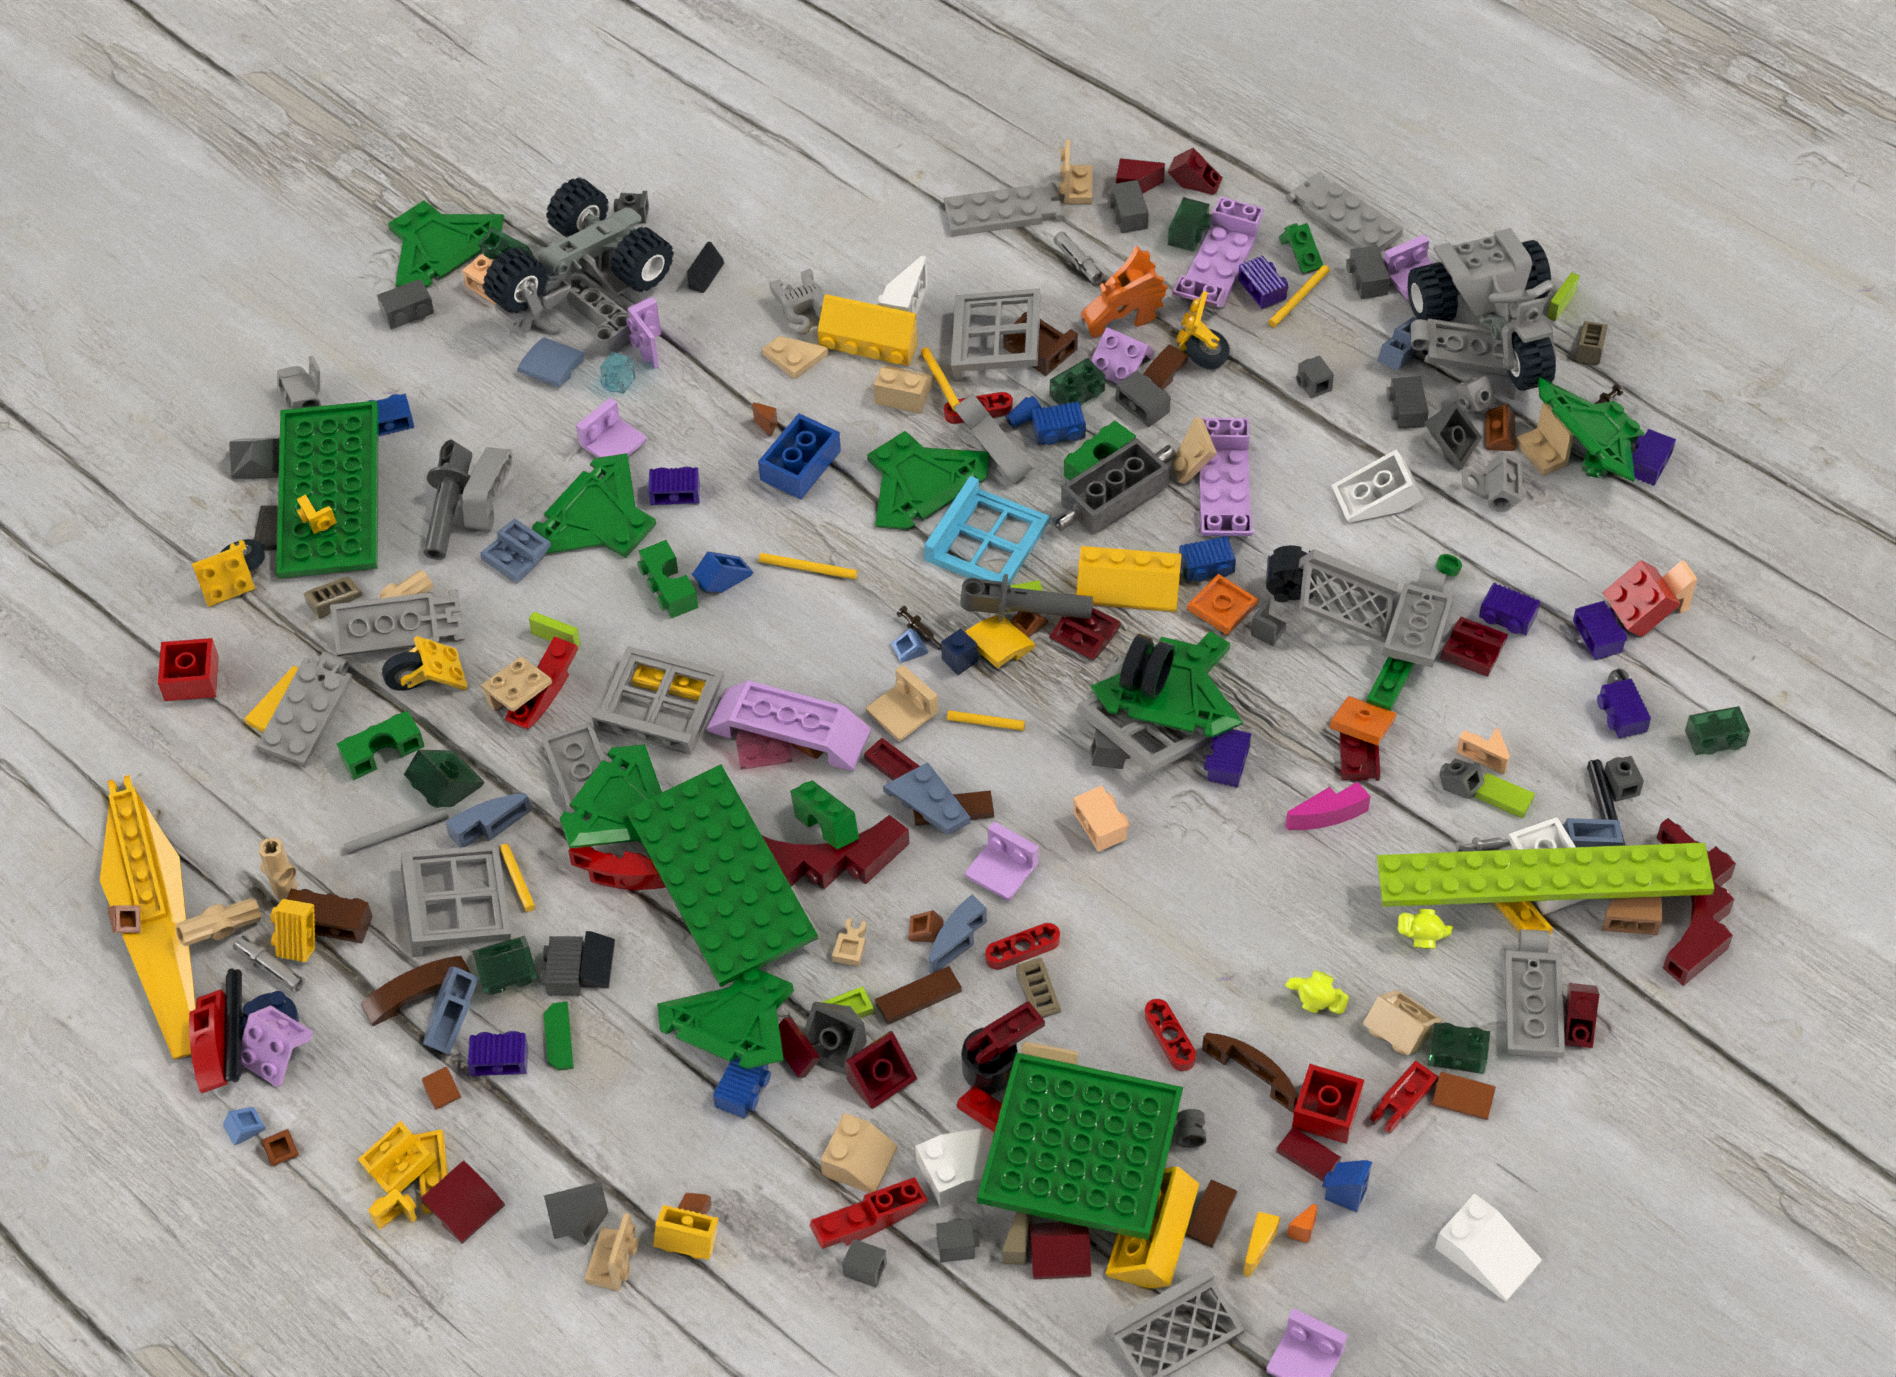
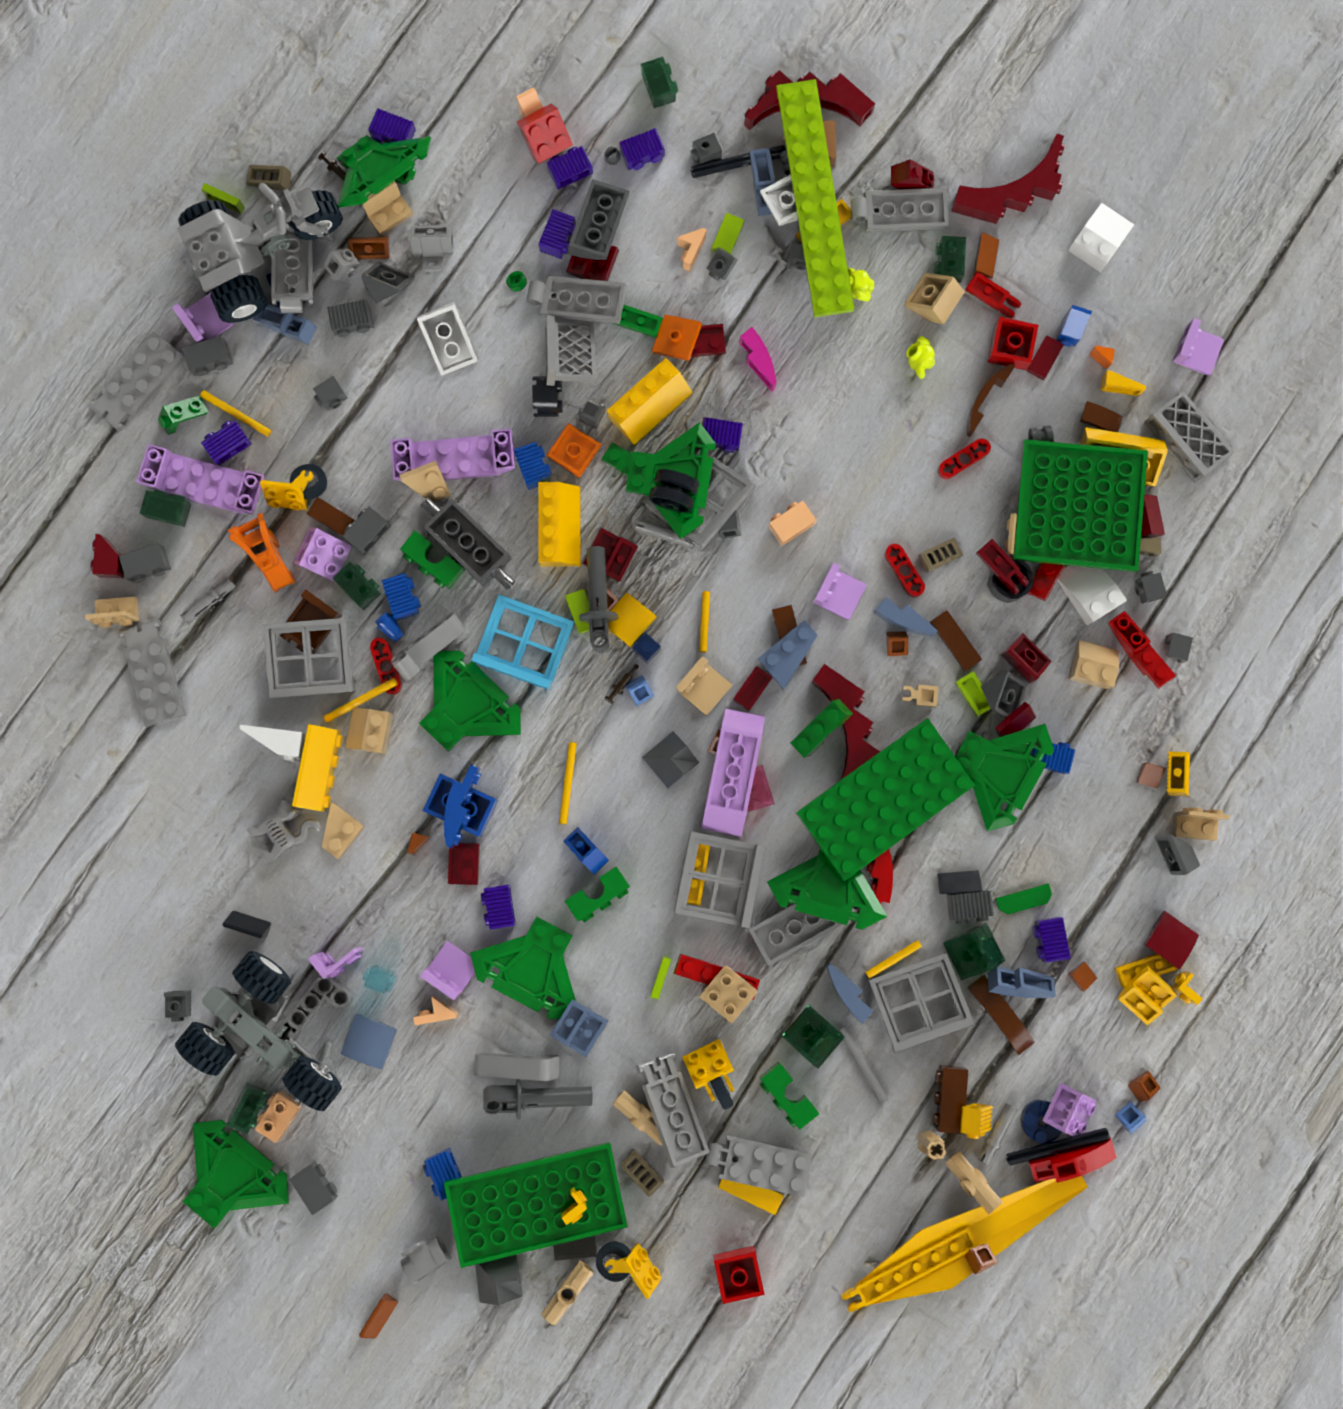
camera: 100 degrees left, 30 degrees up
(221, 512) = (559, 1303): none -> tan piece
(251, 349) = (379, 1317): none -> dark orange slope
(567, 420) = (441, 1012): none -> light nougat slope
(732, 461) = (464, 864): none -> dark red plate
(793, 435) = (455, 814): none -> blue slope
(817, 670) = (670, 759): none -> dark grey slope
(1194, 172) = (100, 509): dark red slope -> none
(1279, 684) = (649, 401): none -> yellow slope
(1524, 646) = (598, 221): none -> dark grey slope
(1555, 1147) = (991, 203): none -> dark red arch

